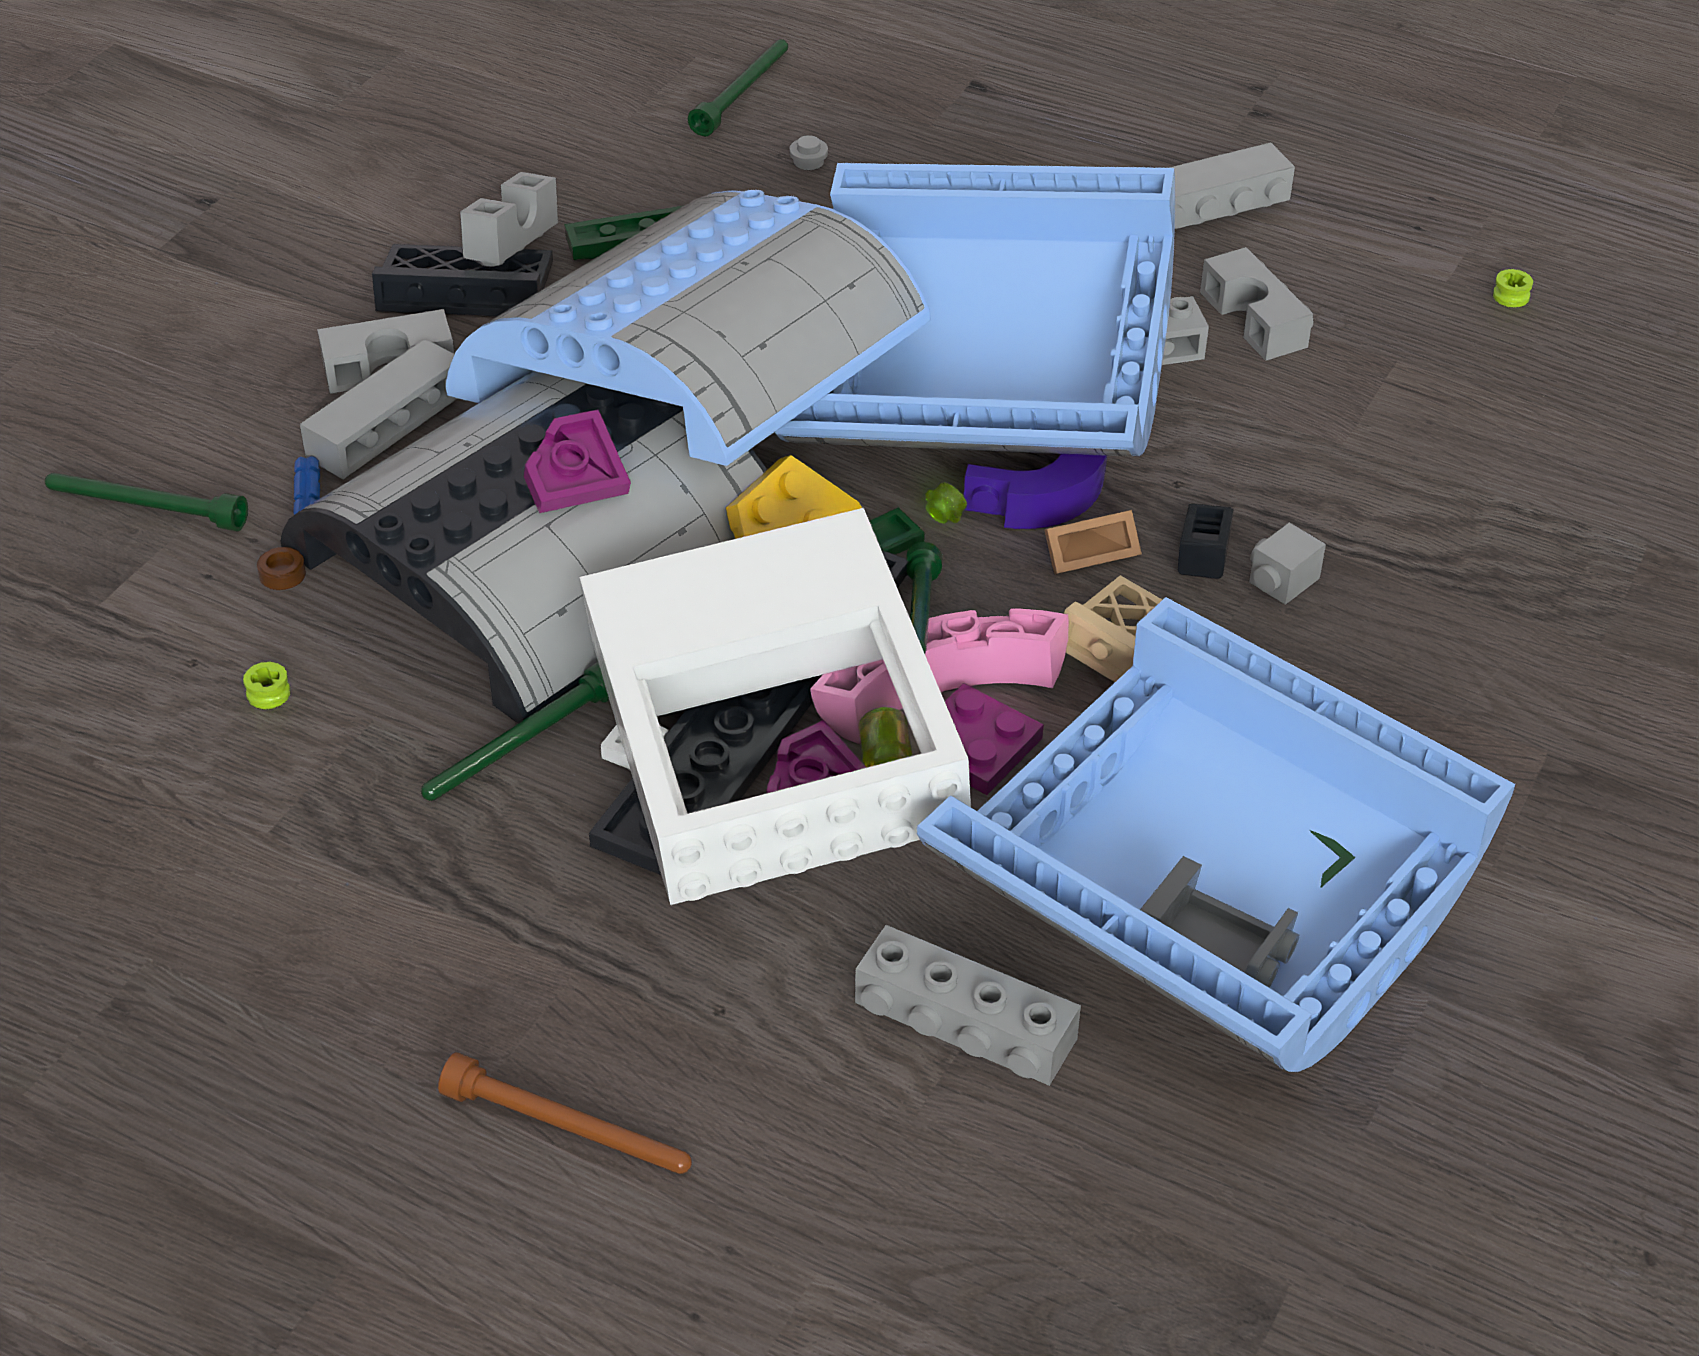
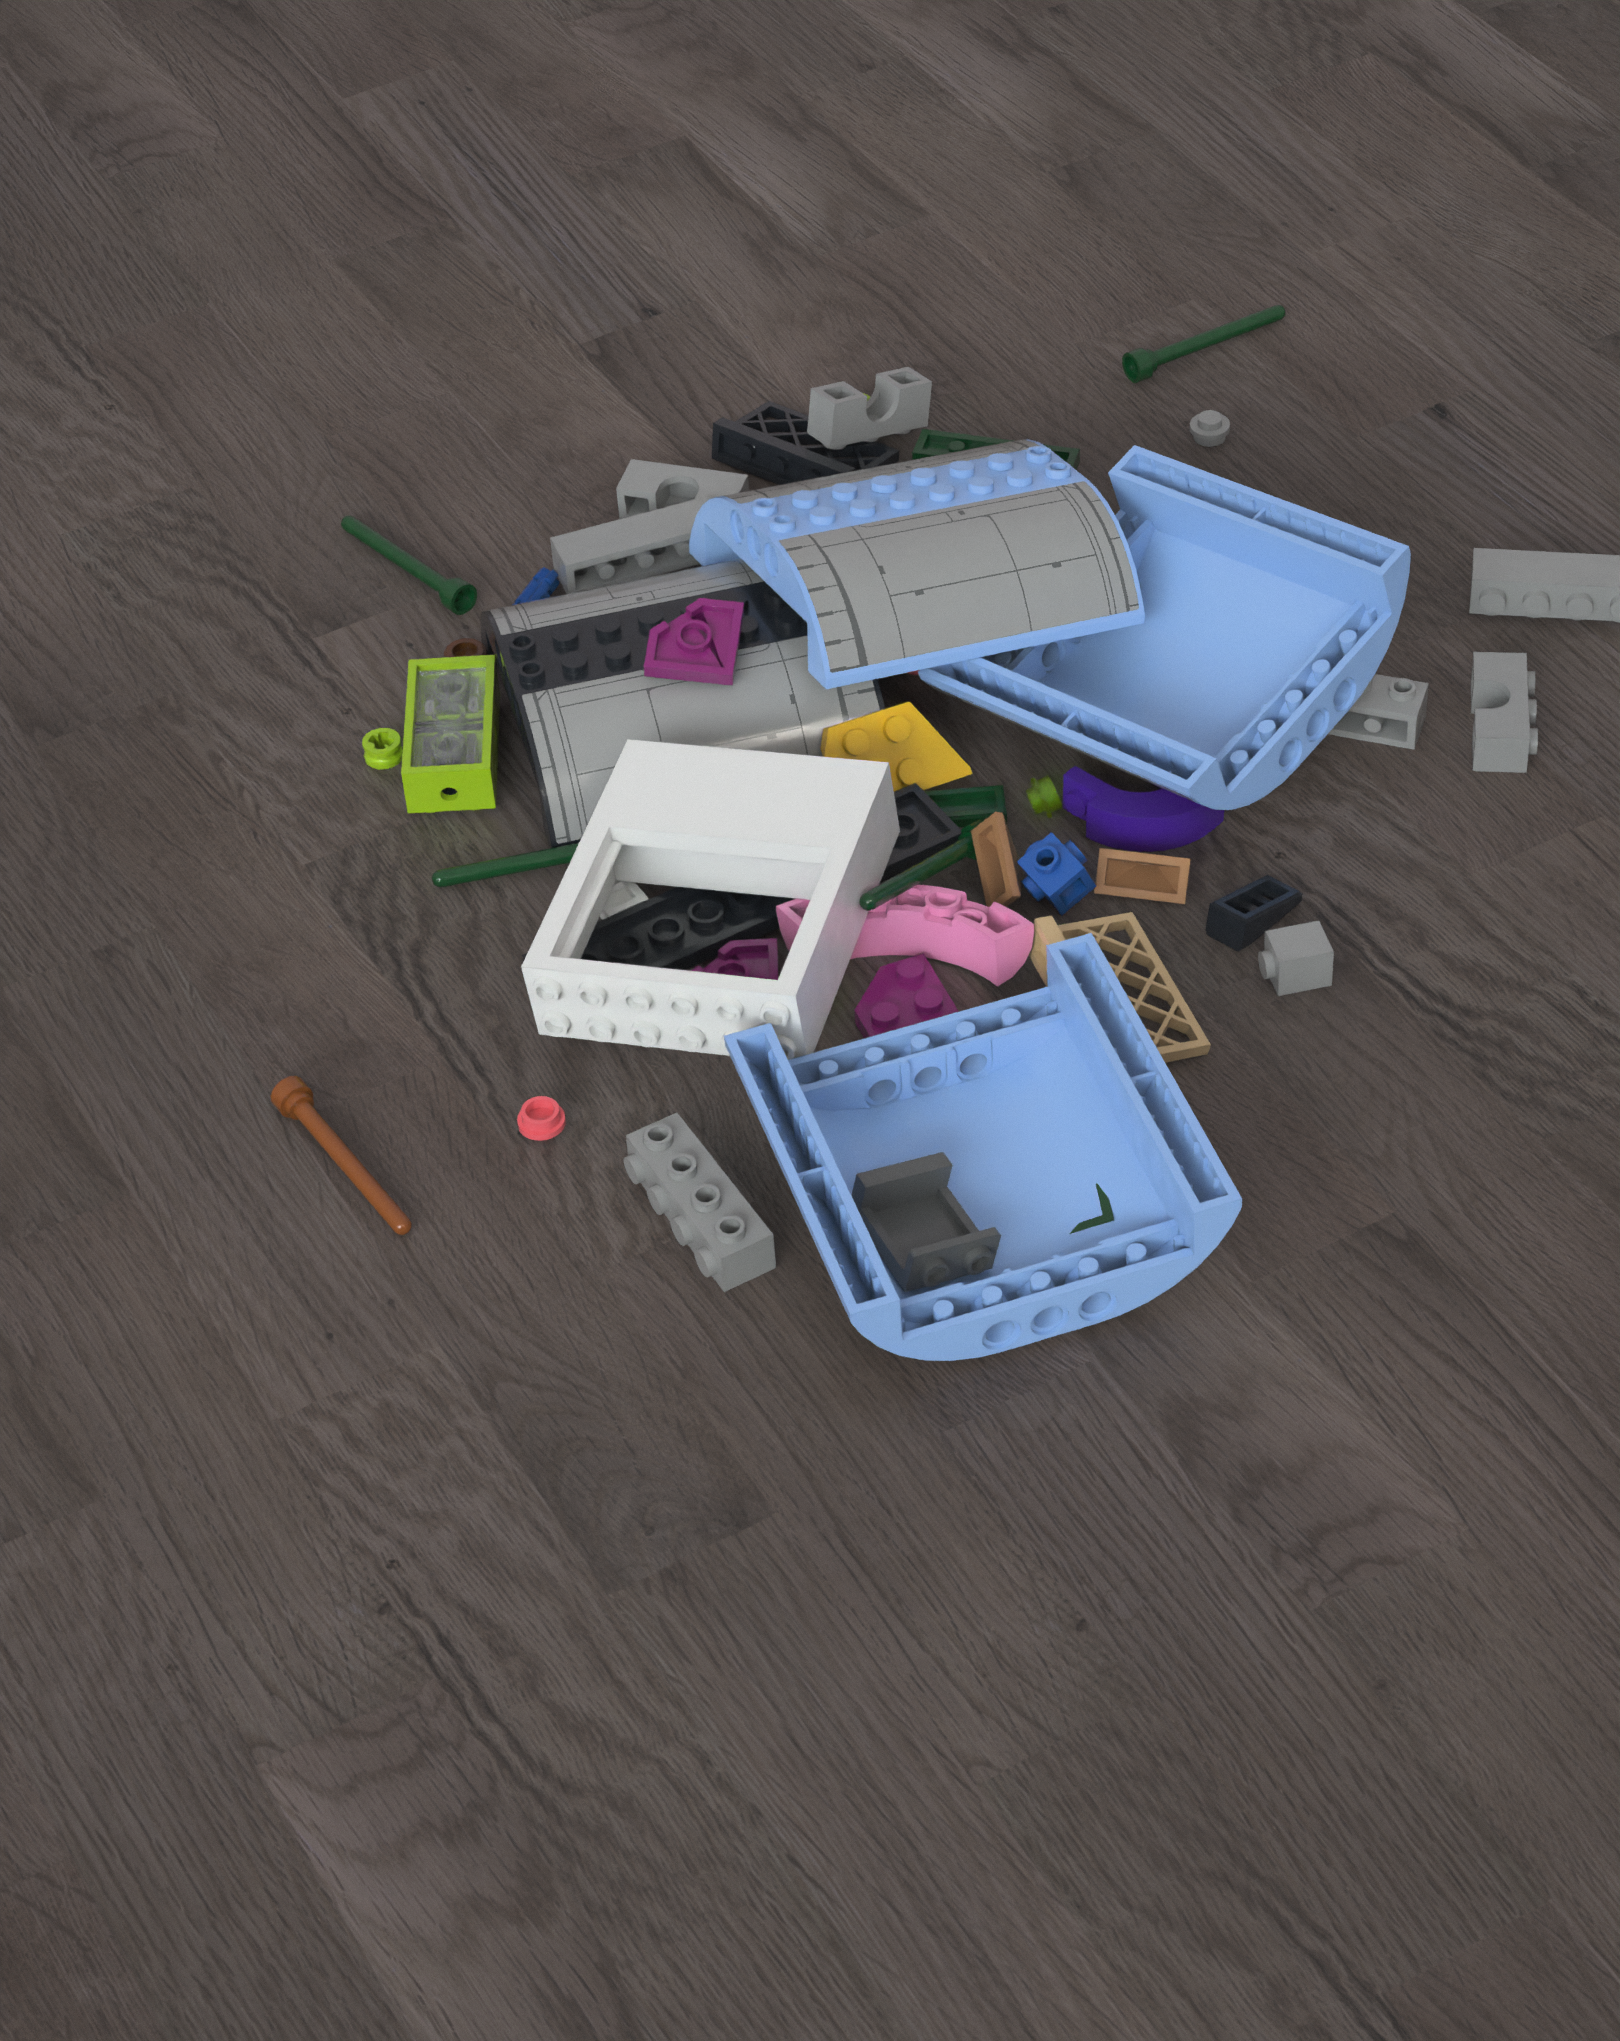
camera: 35 degrees right, 0 degrees up
(342, 644) = (451, 734): none -> brick
(736, 989) = (541, 1118): none -> coral plate
(969, 574) = (997, 861): none -> medium nougat slope
(1025, 565) = (1055, 873): none -> blue brick

